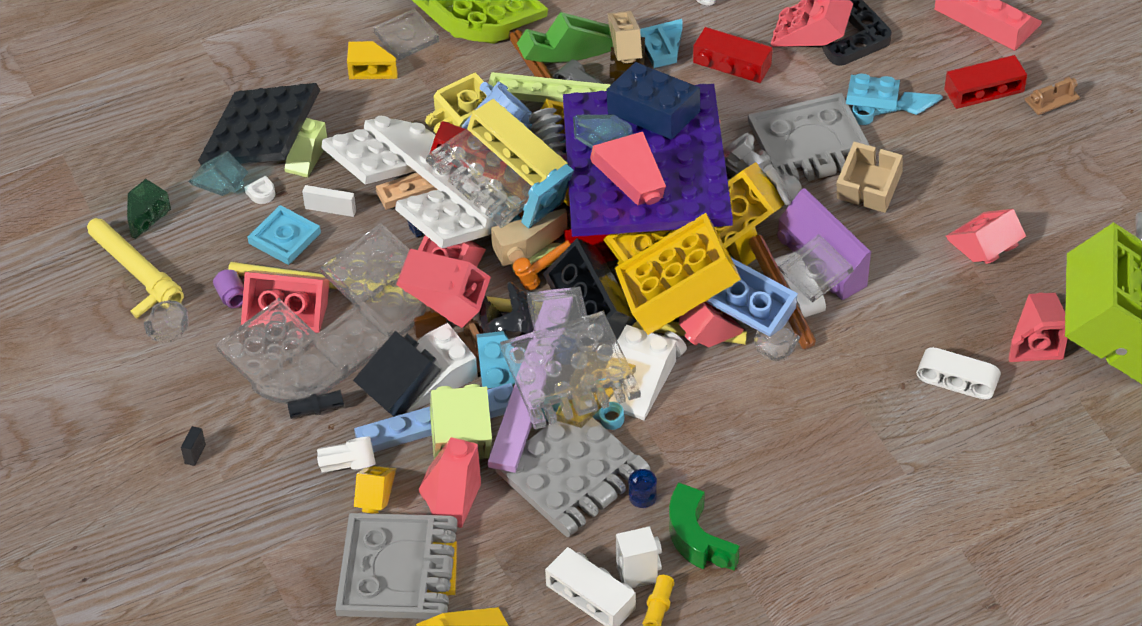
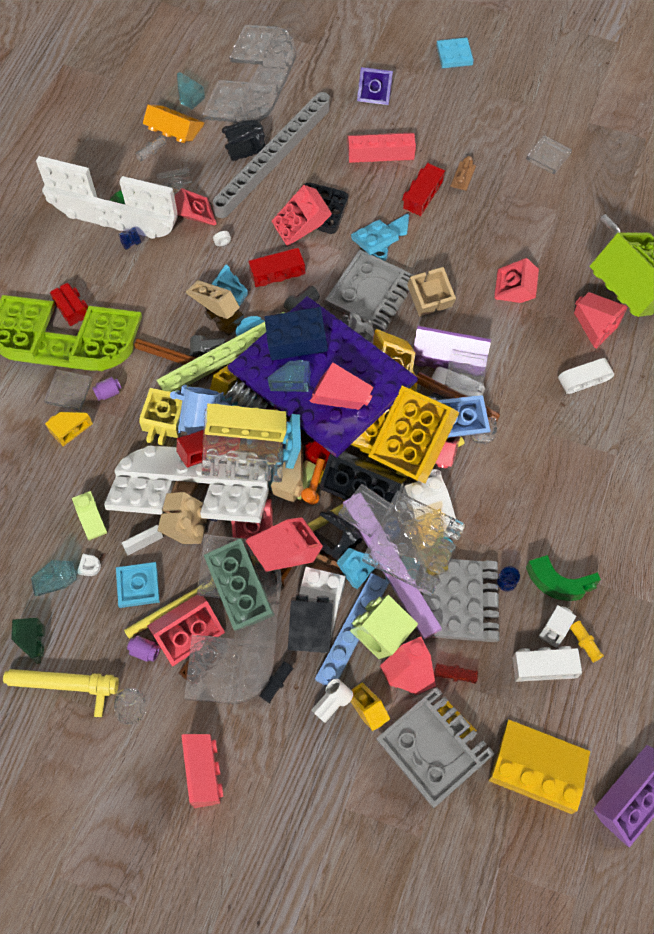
camera: 45 degrees left, 15 degrees up
(166, 413) = (201, 770): none -> coral slope
(193, 446) = (234, 774): black tile -> none
(261, 123) = (47, 523): black plate -> none
(364, 286) = (239, 585): none -> sand green slope
(378, 203) = (187, 524): none -> tan piece
(440, 53) = (106, 388): none -> medium lavender brick
(492, 527) = (456, 673): none -> clear red pin
(566, 40) = (176, 325): bright green slope -> none
(731, 102) = (293, 300): none -> dark grey piece
(786, 185) = (396, 329): light grey piece -> none

